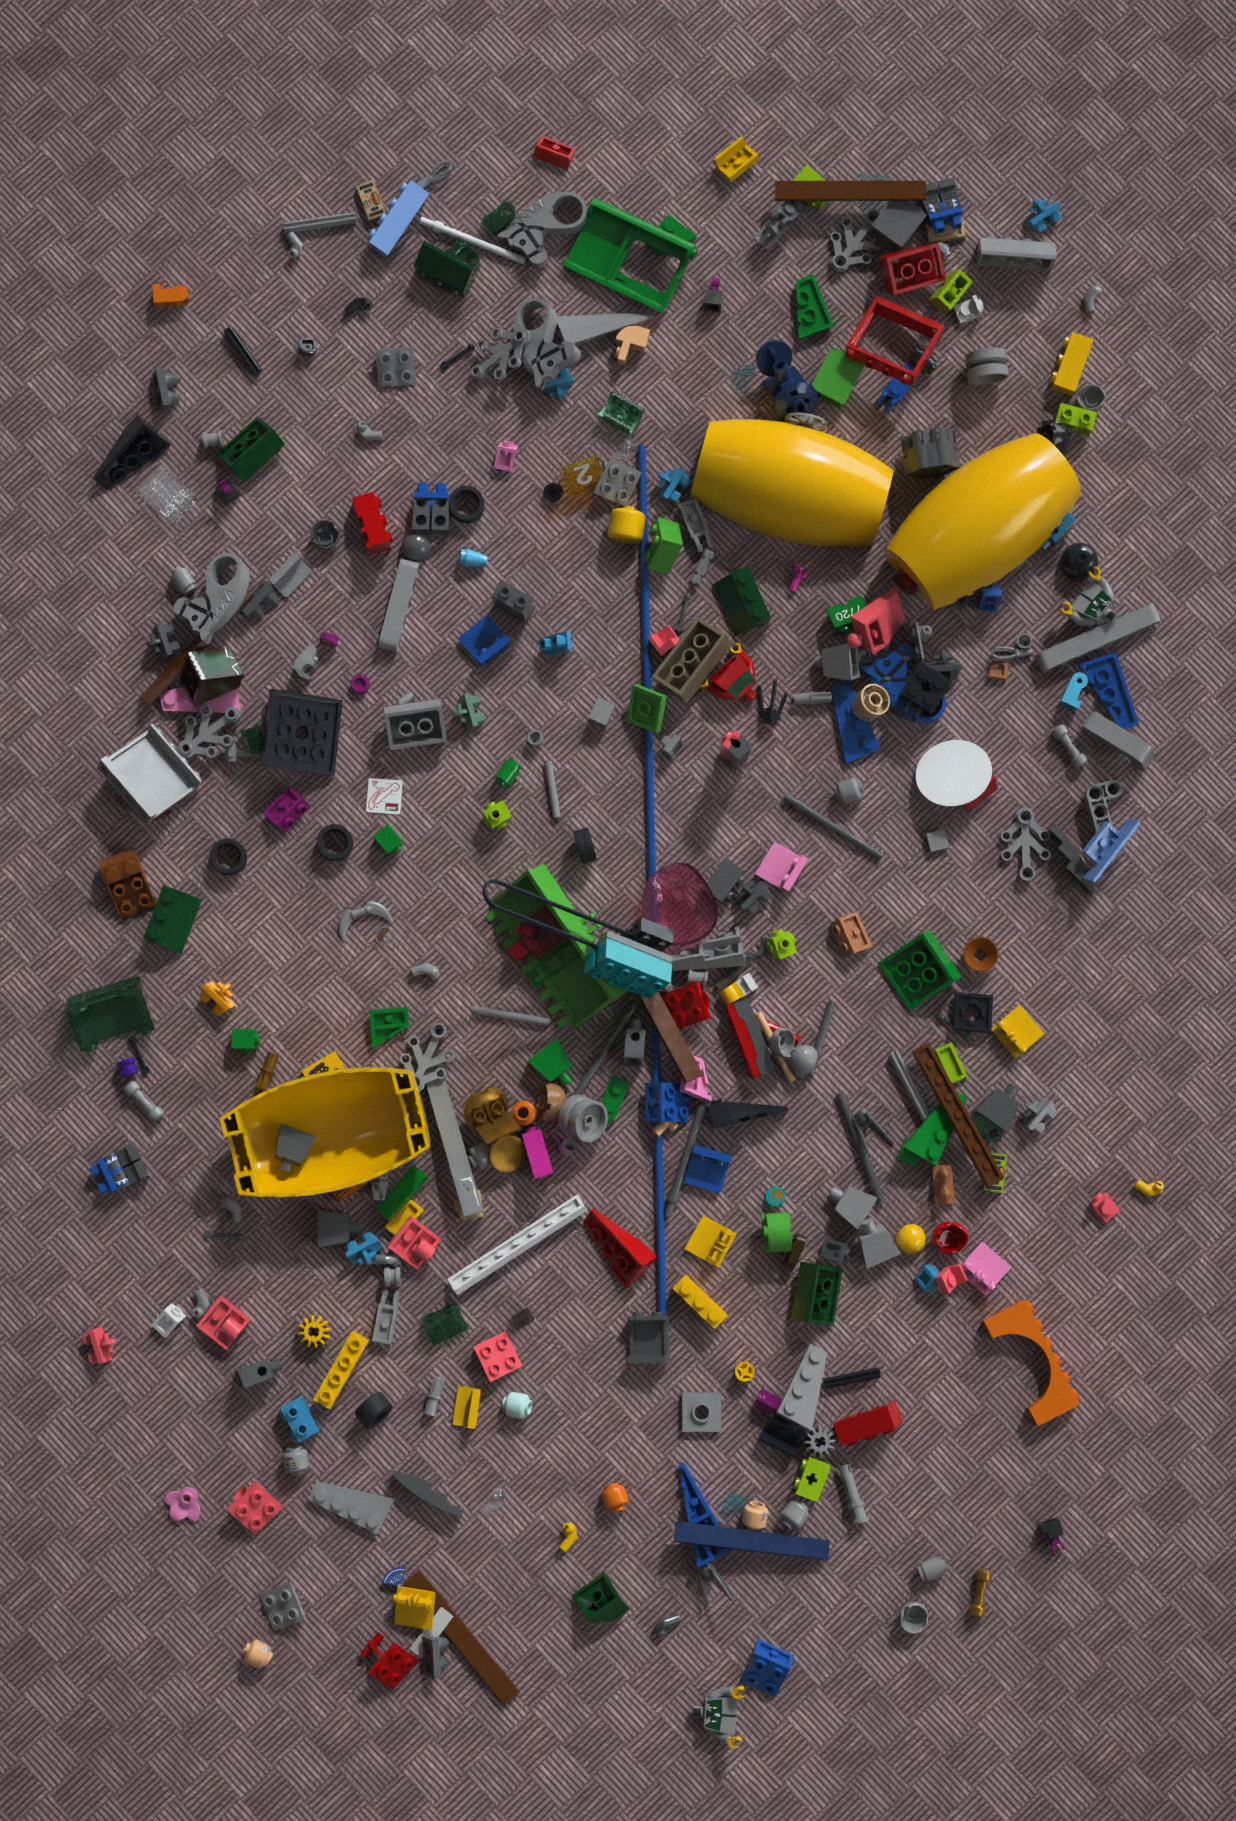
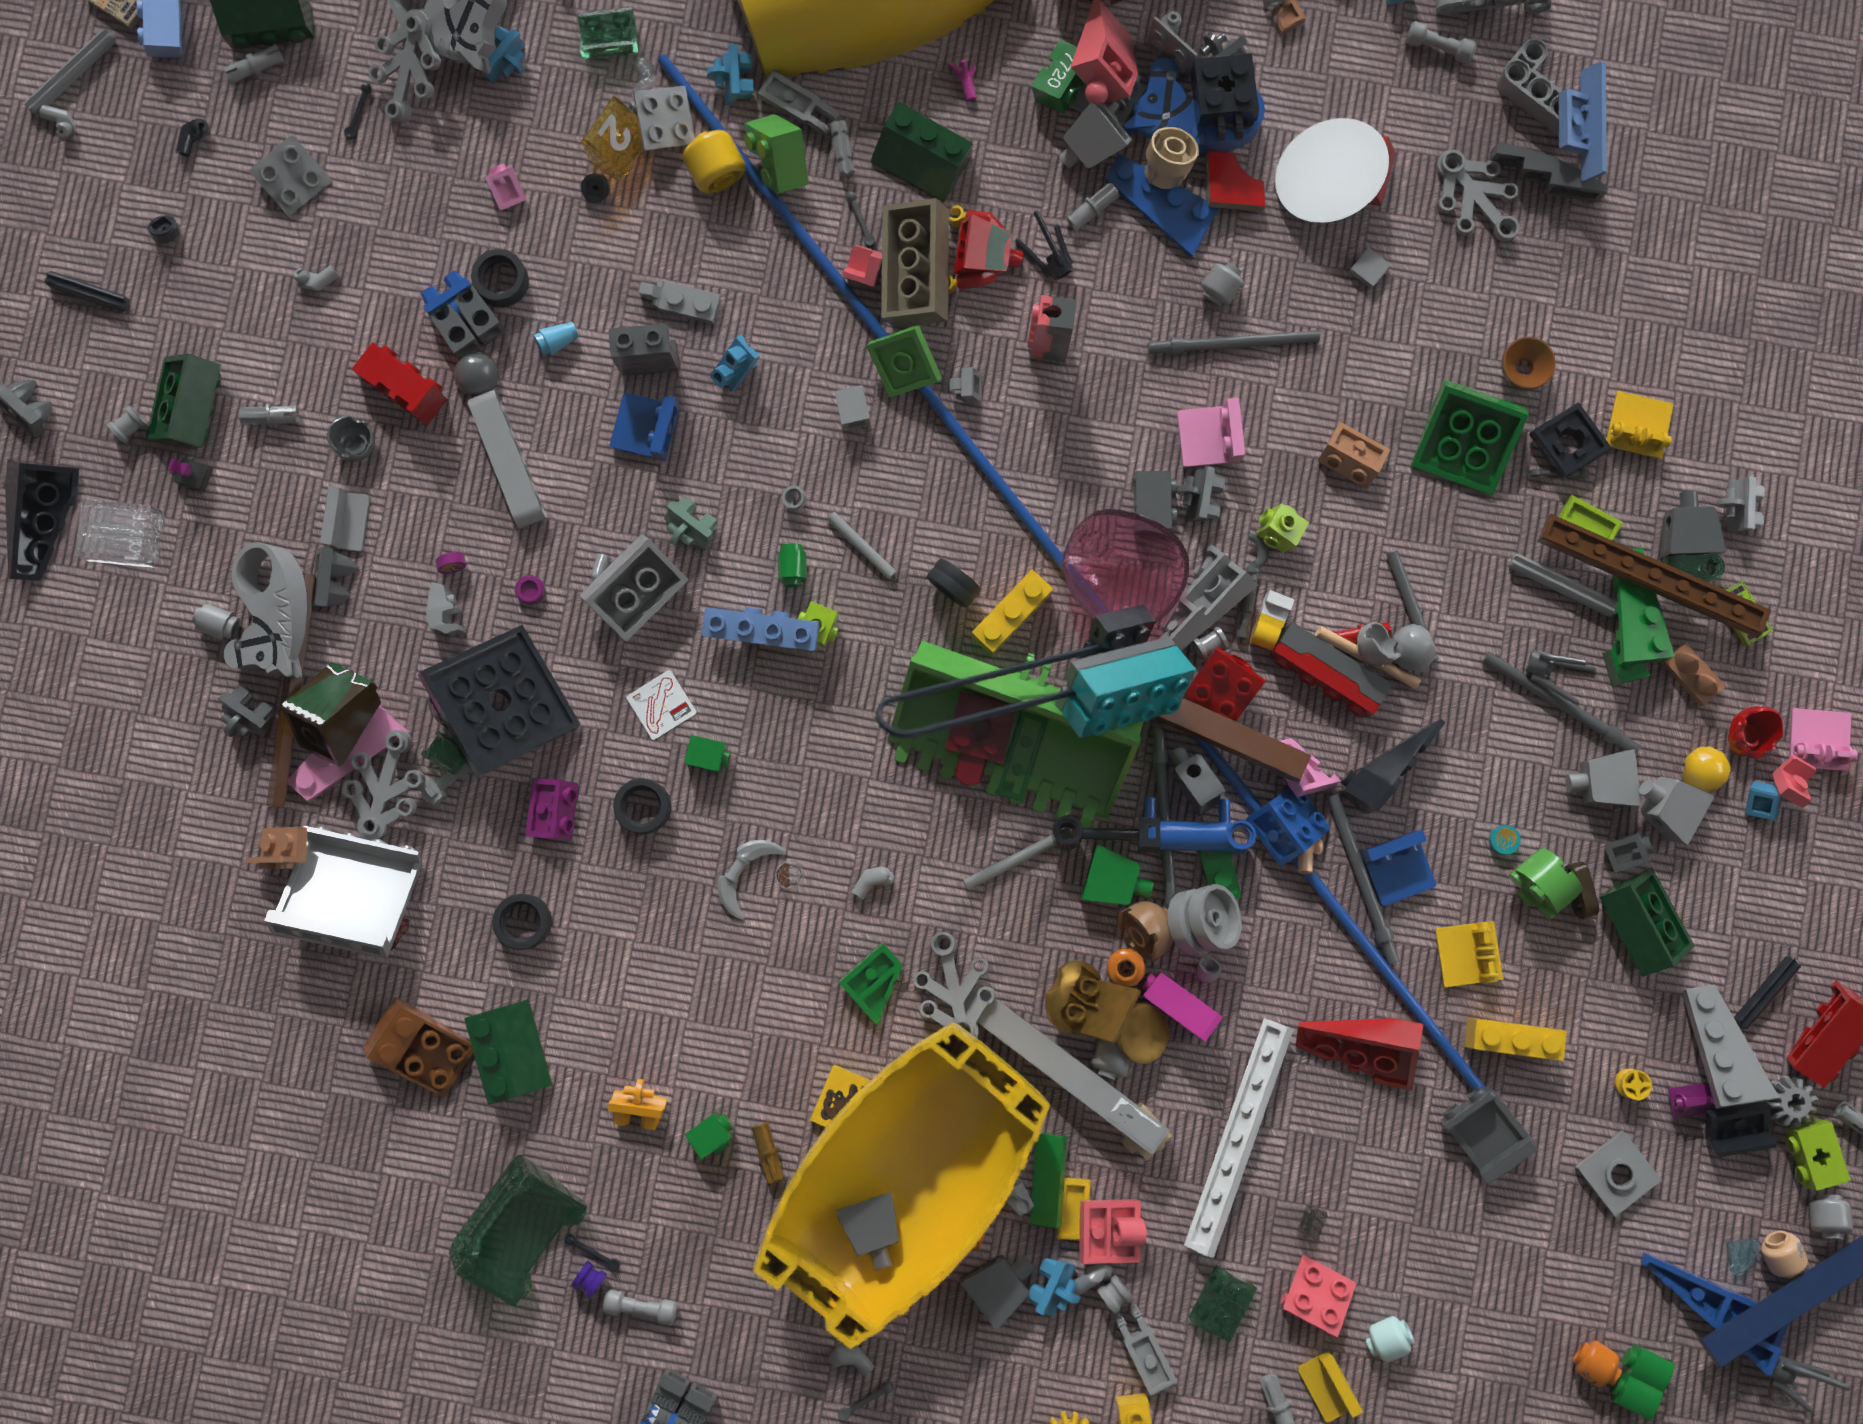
camera: 30 degrees left, 0 degrees up
(133, 726) = (281, 848): none -> nougat bracket
(290, 489) = (269, 415): none -> light grey axle
(420, 290) = (253, 64): none -> light grey pin
(463, 793) = (761, 629): none -> medium blue bracket
(555, 587) = (682, 300): none -> light grey hinge
(595, 1059) = (1165, 835): none -> blue piece
(604, 884) = (1012, 612): none -> yellow brick
(630, 1524) = (1642, 1381): none -> green brick
(895, 740) = (1230, 186): none -> red tile

